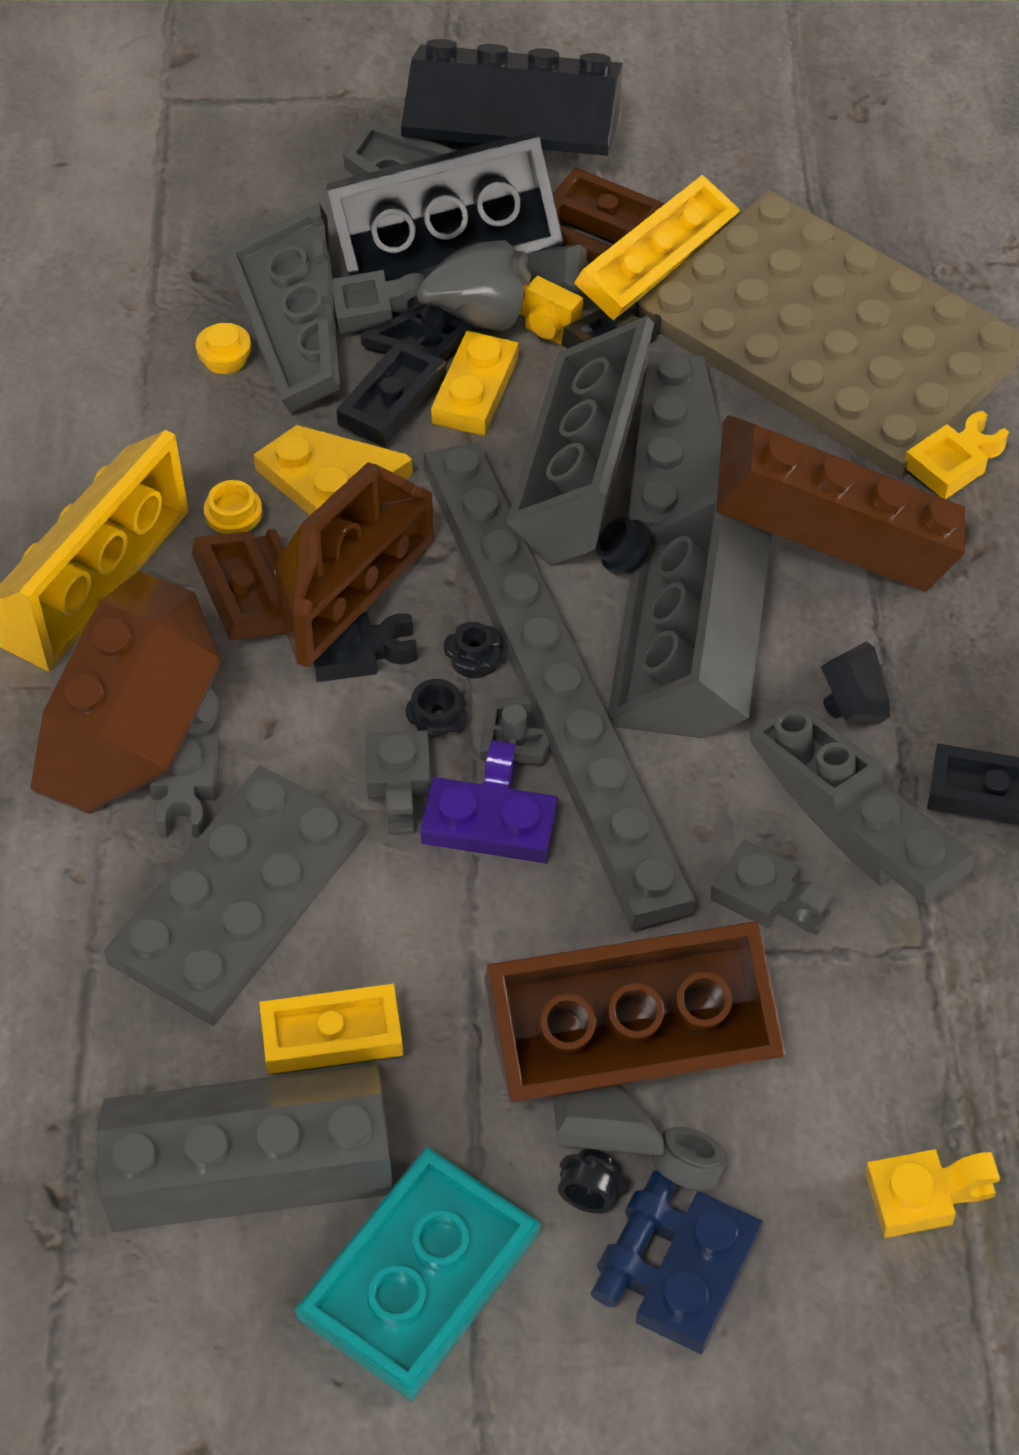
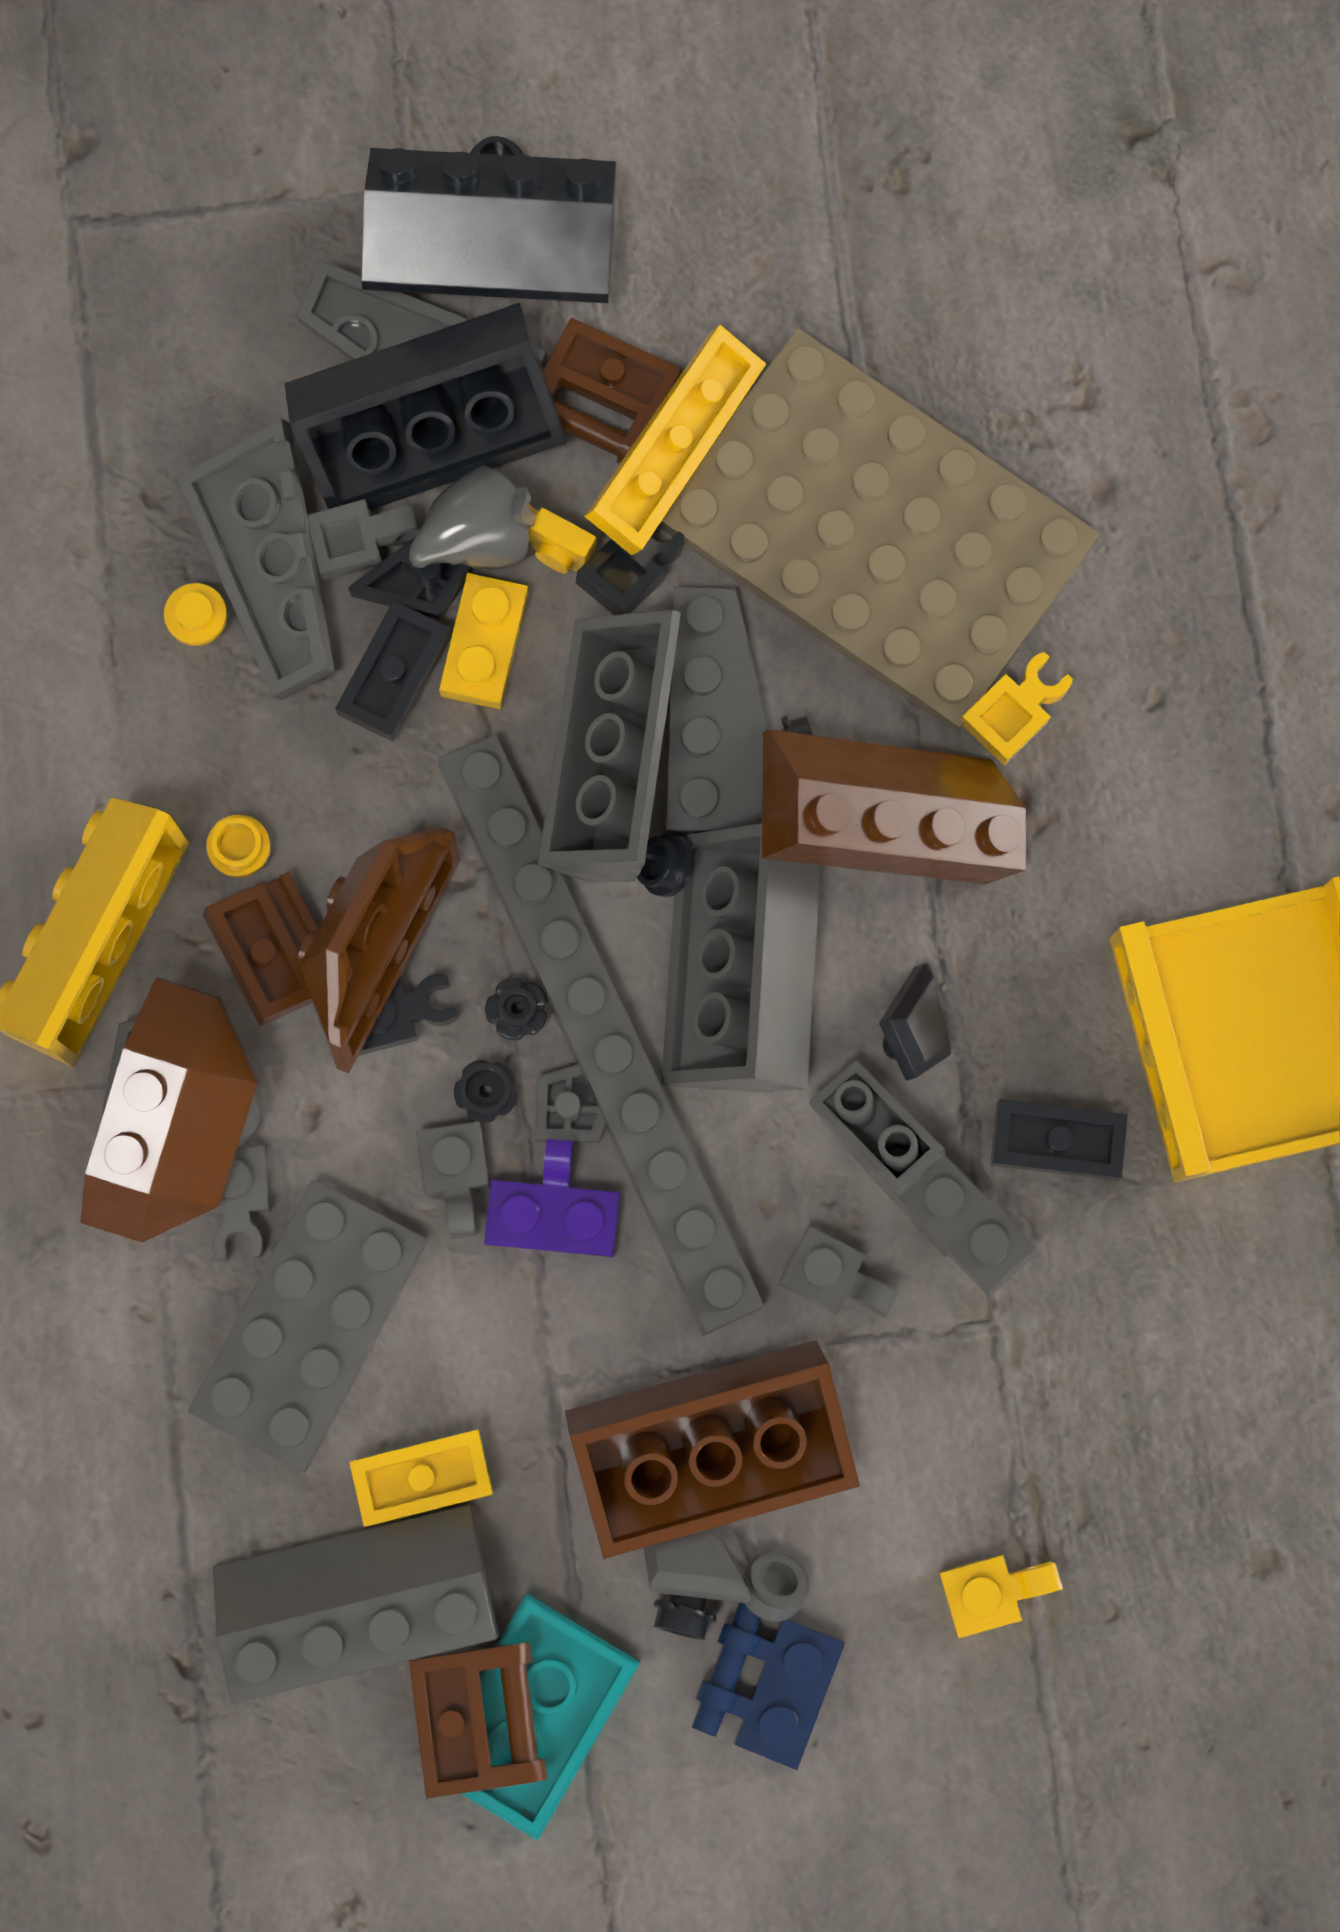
camera: 10 degrees left, 25 degrees up
(315, 464) = (337, 783): yellow wing -> none
(334, 1250) = (455, 1724): none -> reddish brown plate
(559, 265) = (562, 482): dark grey piece -> none

